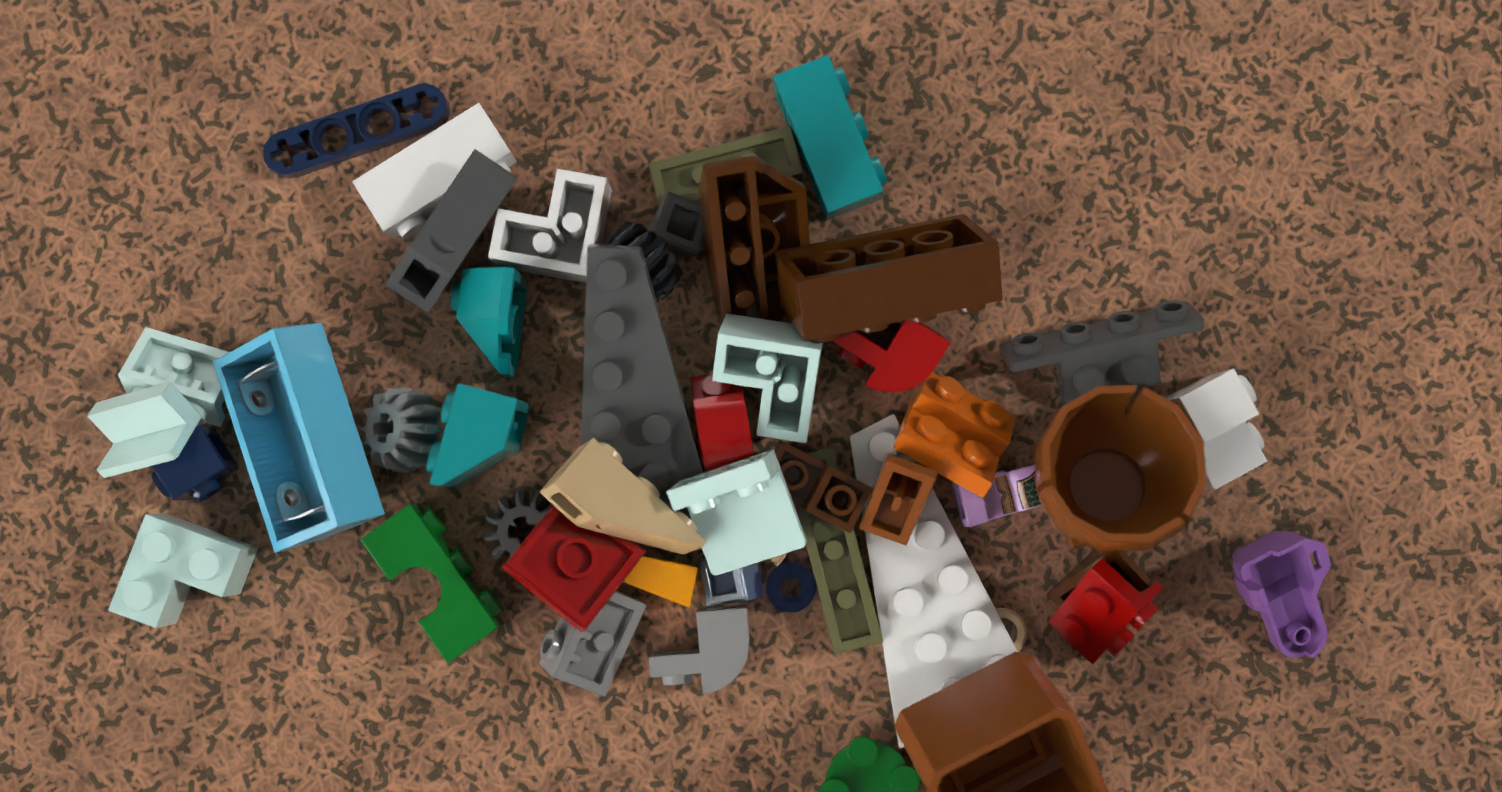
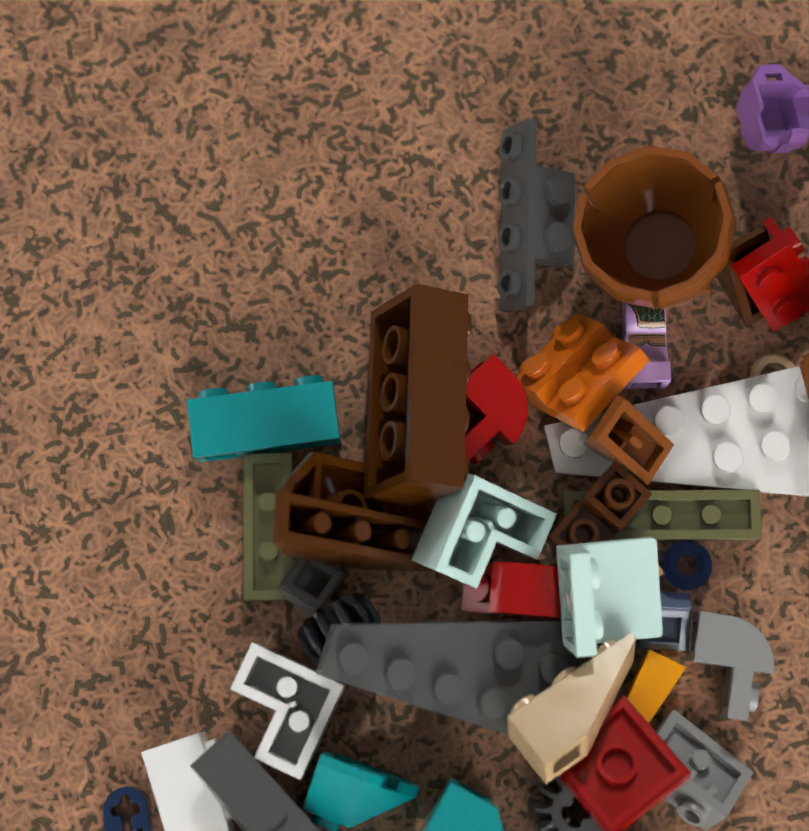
camera: 70 degrees left, 5 degrees down
(1219, 412) = (620, 124): white brick -> none

